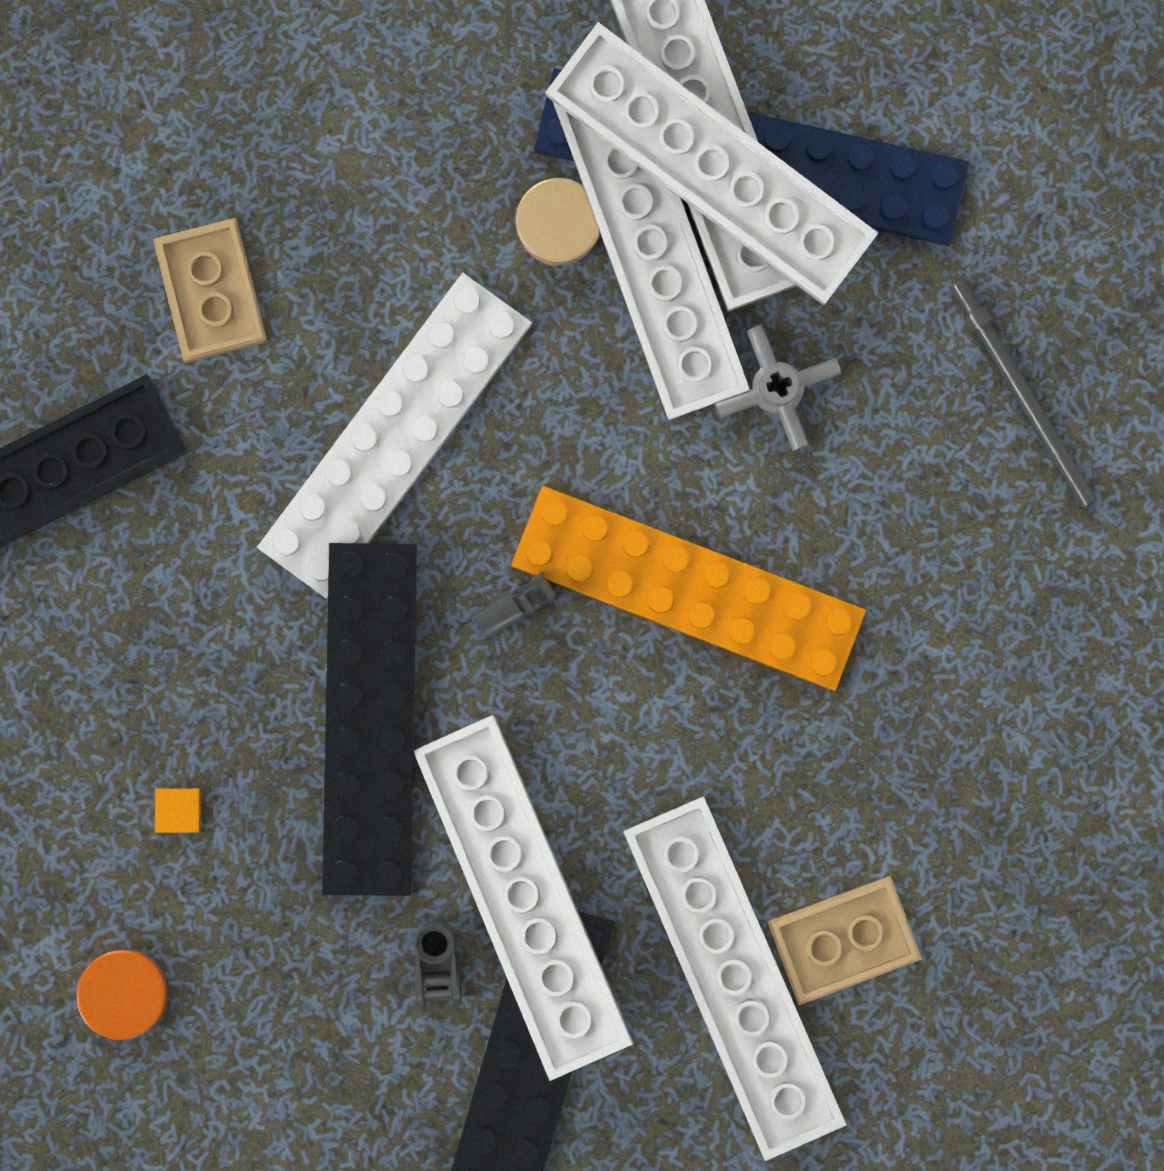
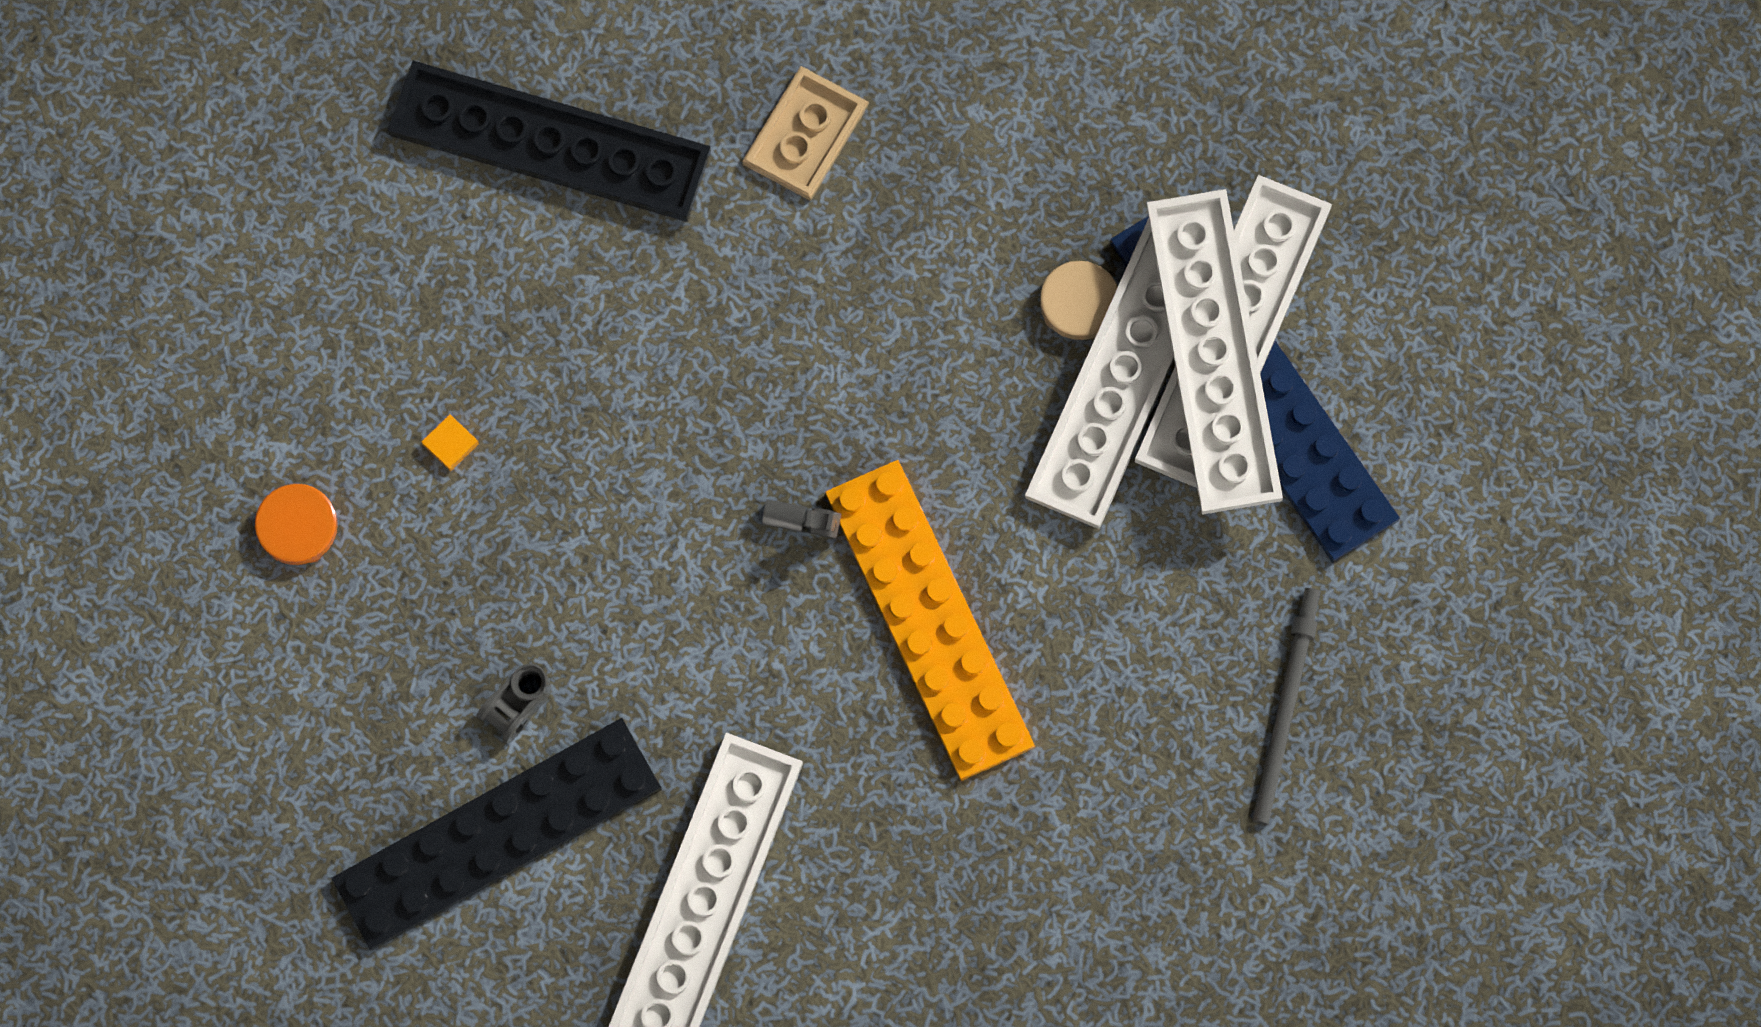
camera: 40 degrees right, 10 degrees down
(369, 719) = (632, 501): black plate -> none
(396, 431) = (833, 337): white plate -> none
(523, 898) = (616, 709): white plate -> none
(771, 401) = (1132, 550): light grey bar -> none
(844, 940) = (802, 950): tan tile -> none

